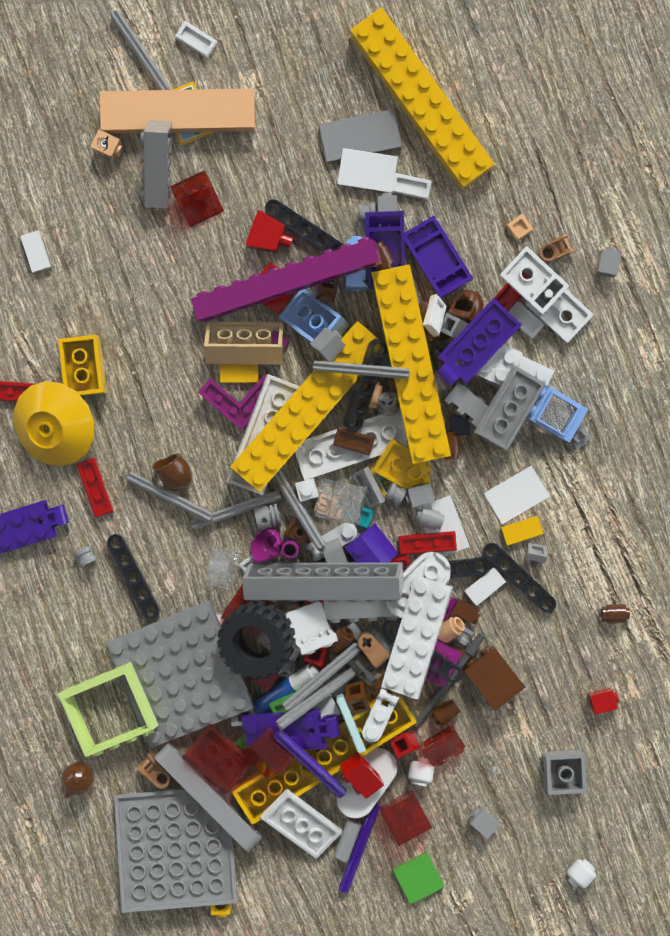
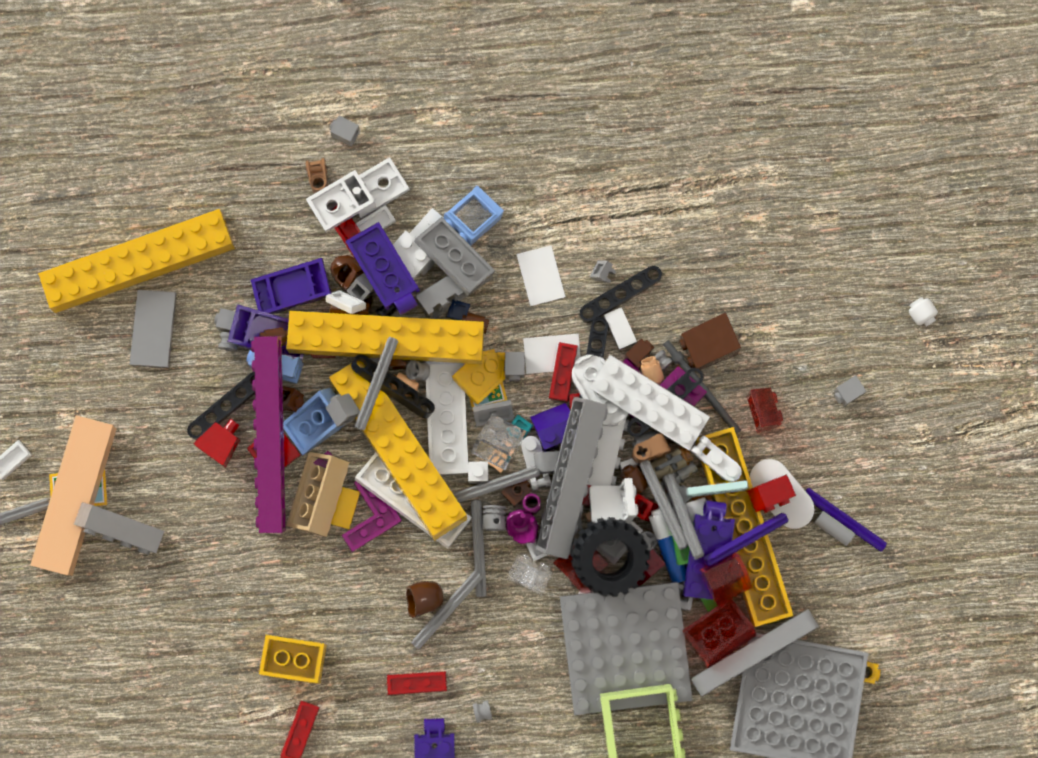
camera: 70 degrees left, 10 degrees down
(35, 251) = (166, 676): white tile -> none
(64, 414) = (339, 686): yellow dish -> none
(107, 145) = (84, 574): light nougat brick -> none
(133, 566) = (506, 673): black beam -> none
(153, 771) = (715, 702): medium nougat piece -> none
(197, 198) = (163, 501): clear red slope -> none
(301, 824) = (805, 567): white tile -> none
(353, 441) = (443, 413): reddish brown tile -> none
(357, 697) = (694, 476): reddish brown brick -> none
(367, 170) = (188, 330): white sticker -> none
(395, 494) = (507, 389): light grey wheel -> none
(404, 744) = (753, 445): red brick -> none
(405, 817) = (825, 465): clear red brick -> none
(411, 186) = (216, 294): white tile -> none
(418, 877) = (889, 470): bright green tile -> none
(421, 772) = (785, 438): white head -> none
(429, 518) = (540, 362): light grey brick -> none
(445, 712) = (732, 399): reddish brown brick -> none
(519, 227) = (286, 204): light nougat tile -> none
(522, 530) = (576, 279): yellow tile -> none
(564, 772) = (819, 300): light grey brick -> none
(580, 437) = (503, 200): light grey tile -> none
(603, 700) = (760, 246): red brick -> none
(615, 613) = (680, 213): reddish brown brick -> none

